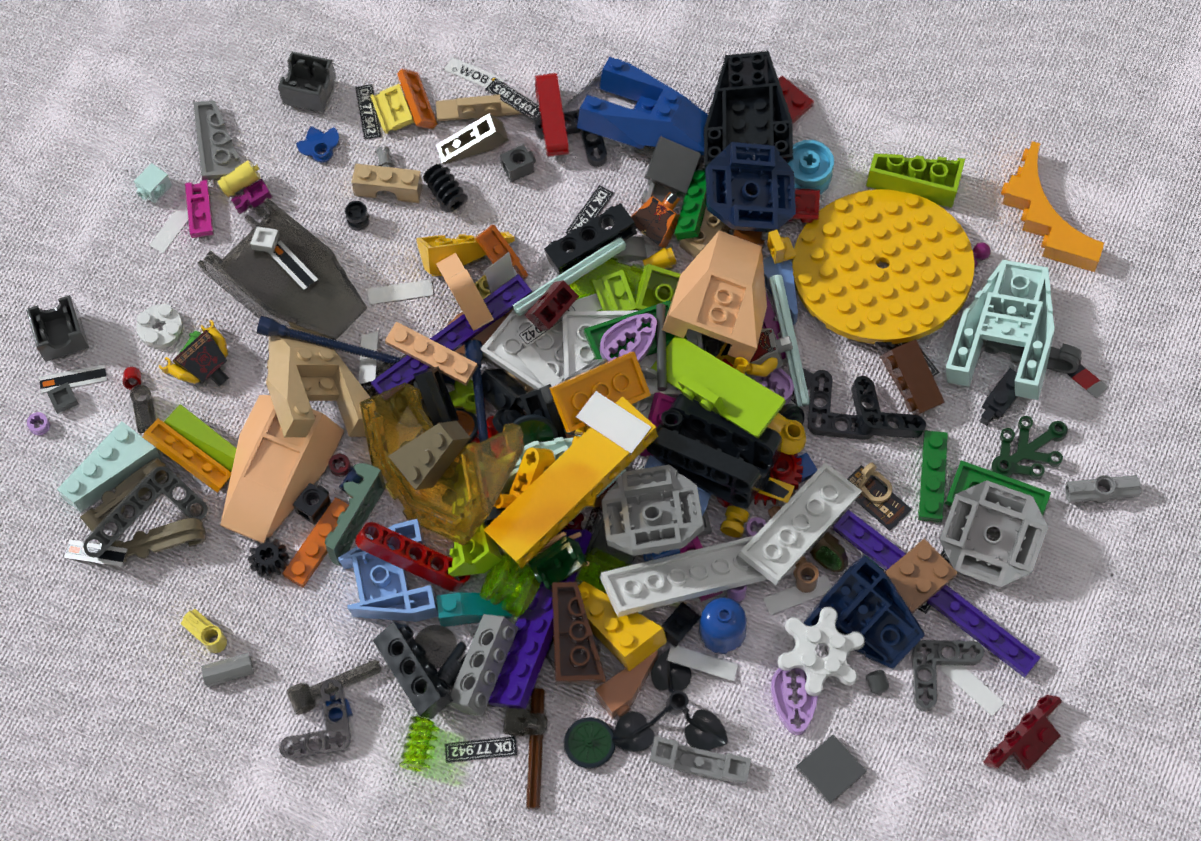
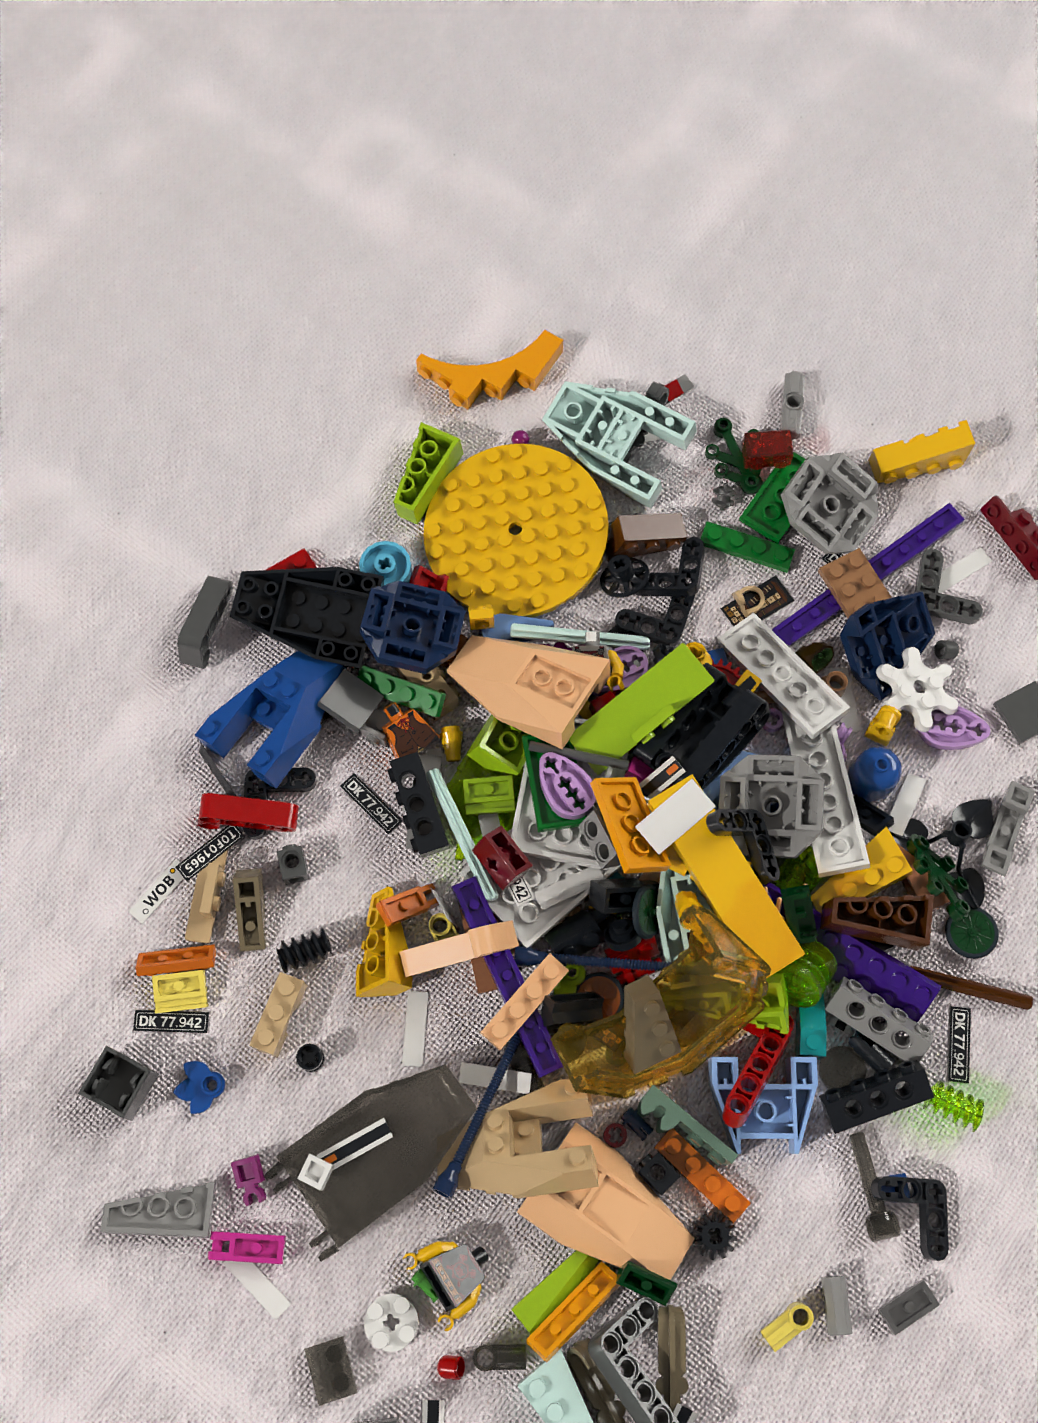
camera: 80 degrees left, 5 degrees up
(116, 290) = (331, 1370): none -> clear smoke plate
(152, 183) = (197, 1302): light aqua brick -> none
(217, 505) = (645, 1282): none -> dark green slope
(236, 731) = (908, 1307): none -> flat silver plate
(241, 177) = (224, 1190): light yellow piece -> none
(384, 159) = (245, 1013): light grey pin -> none
(523, 722) = (952, 991): clear smoke piece -> none
(620, 489) = (753, 828): none -> black beam
(634, 694) = (938, 876): none -> dark green plant
(656, 416) = (661, 778): none -> sticker
(717, 37) = (202, 622): none -> dark grey beam
(734, 521) = (765, 739): yellow wheel -> none
(758, 592) = (843, 732): none -> lavender bush
(772, 626) = (883, 725): none -> yellow piece
(867, 365) = (622, 573): none -> black wheel
(978, 442) = (723, 497): none -> flat silver wheel
(1000, 398) = (677, 465): black hinge -> none
(1038, 467) = (767, 449): none -> clear red brick
(1085, 621) = (922, 454): none -> yellow wedge

